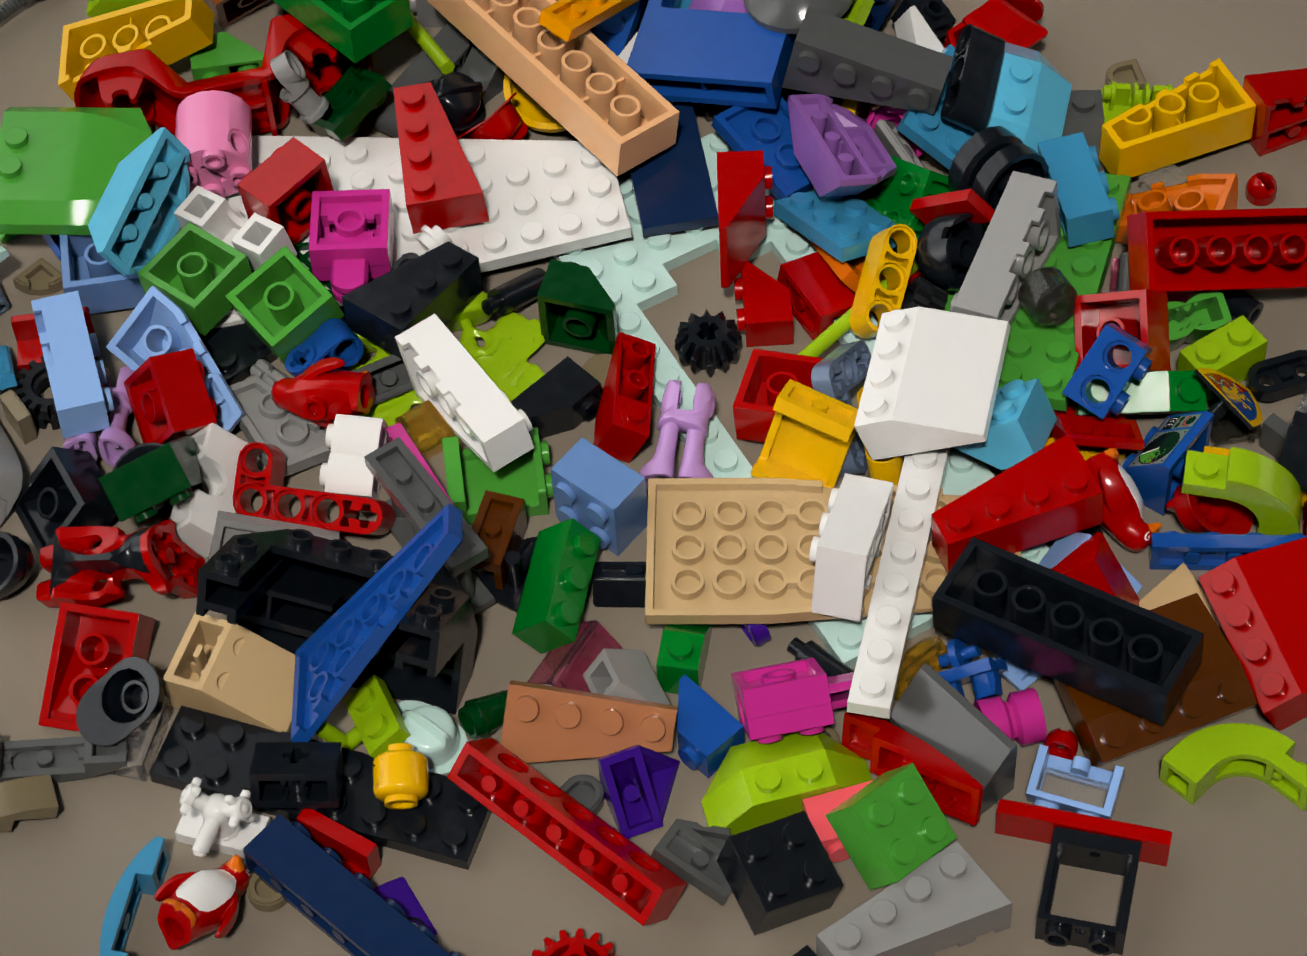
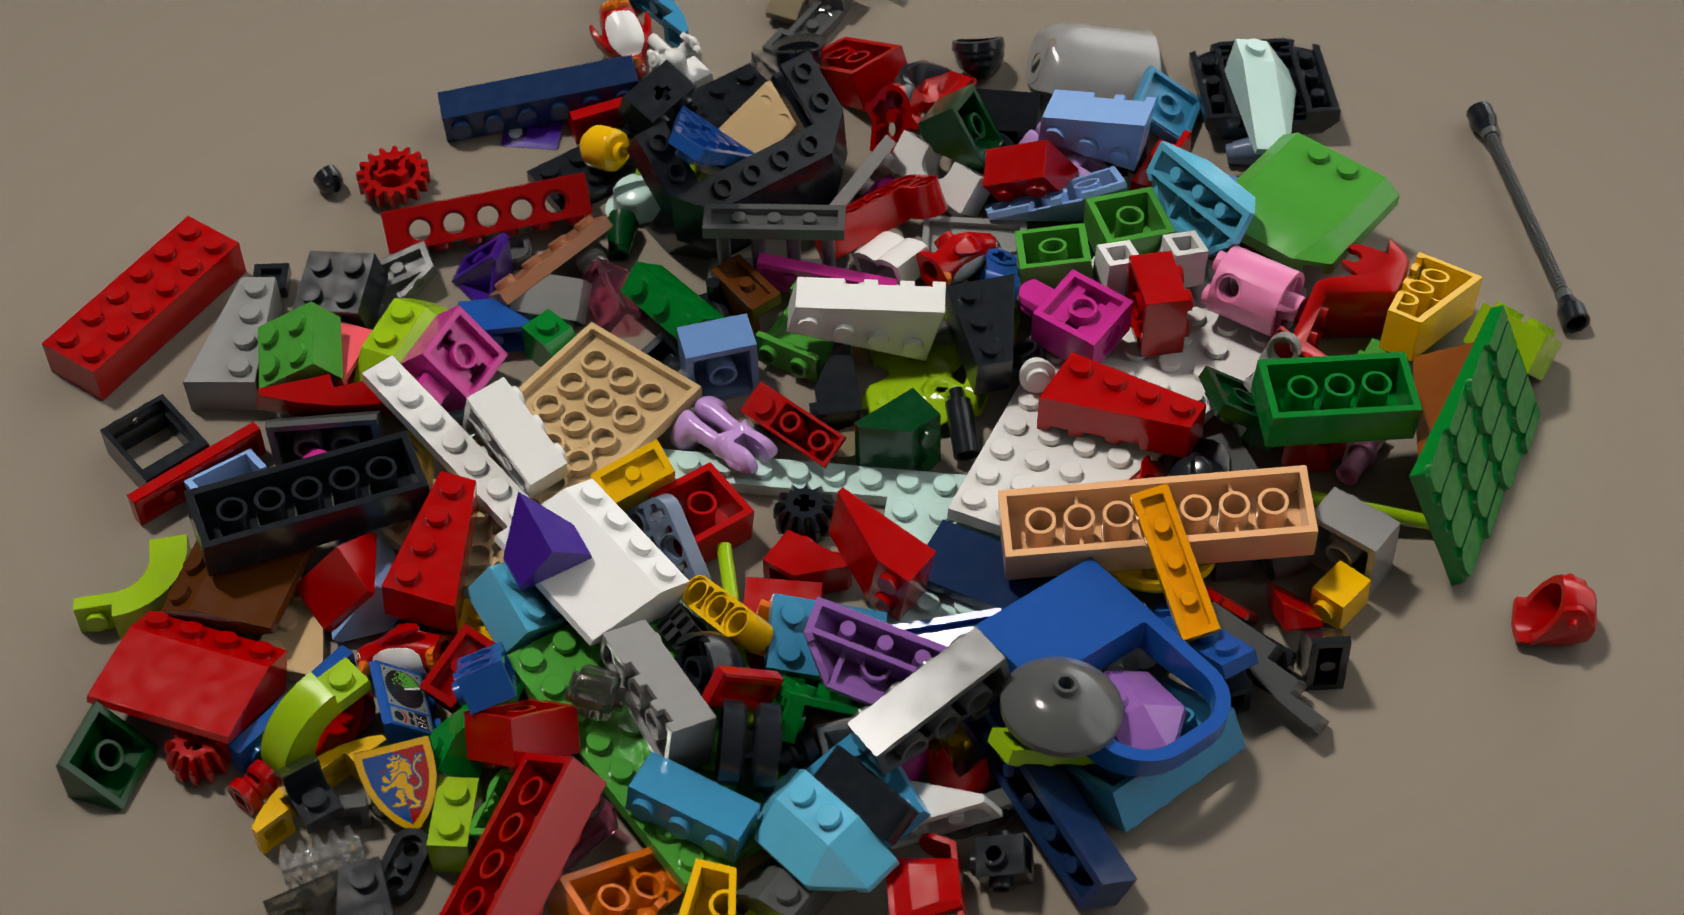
camera: 125 degrees right, 5 degrees down
(973, 379) = (541, 544): none -> dark purple slope

